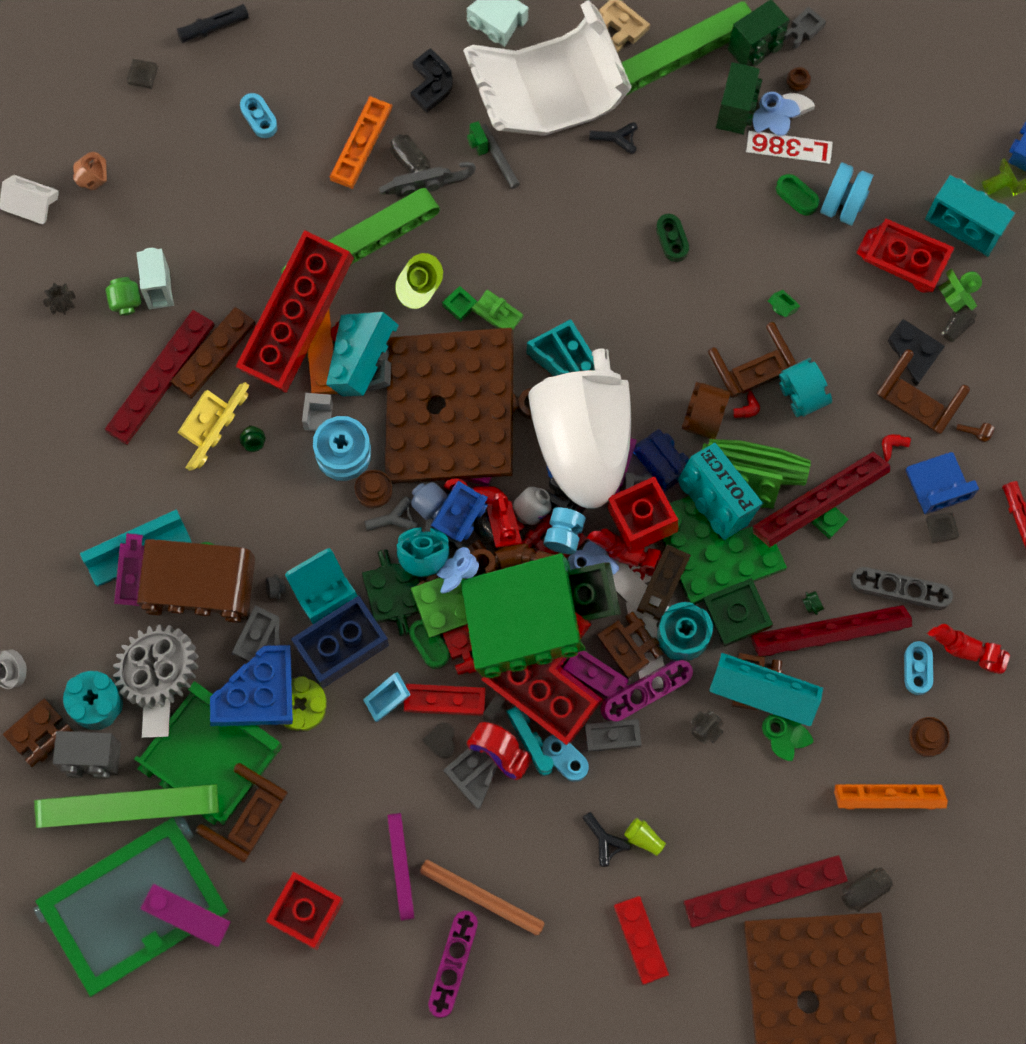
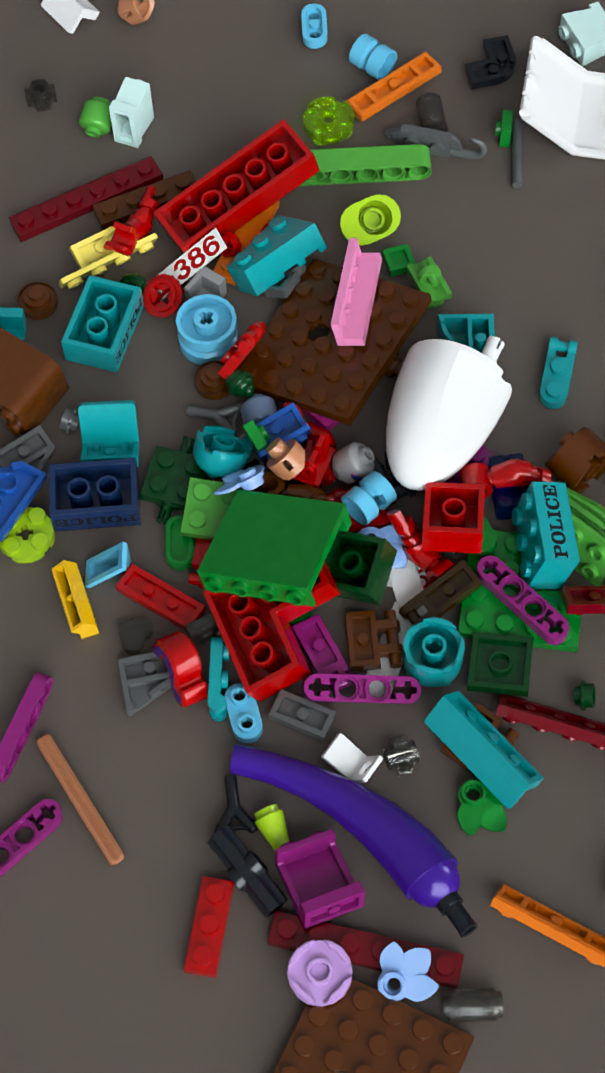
camera: 35 degrees right, 10 degrees down
(179, 493) = (38, 300): none -> reddish brown plate
(224, 385) = (136, 227): none -> red piece
(252, 487) = (102, 323): none -> teal brick
(275, 441) = (152, 296): none -> red gear
(290, 400) = (195, 258): none -> white sticker
(313, 362) = (232, 242): none -> red plate
(324, 123) = (372, 56): none -> medium azure wheel
(327, 214) = (332, 132): none -> clear neon green plate
(380, 735) = (77, 598): none -> yellow piece
(385, 454) = (241, 348): none -> red plate
(402, 484) = (240, 383): none -> dark green plate
(448, 526) = (256, 435): none -> green plate
(454, 359) = (355, 295): none -> bright pink fence
(481, 531) = (286, 455): none -> nougat piece
(641, 340) = (557, 373): none -> teal plate
(646, 882) = (247, 871): none -> black piece
(659, 456) = (503, 475): none -> red piece
(672, 752) = (350, 760): none -> white bracket
(702, 859) = (318, 878): none -> magenta panel
(728, 547) = (519, 602): none -> magenta beam
(736, 794) = (396, 839): none -> dark purple animal
(746, 930) = (319, 972): none -> lavender tile
(809, 890) = (410, 970): none -> light blue plate

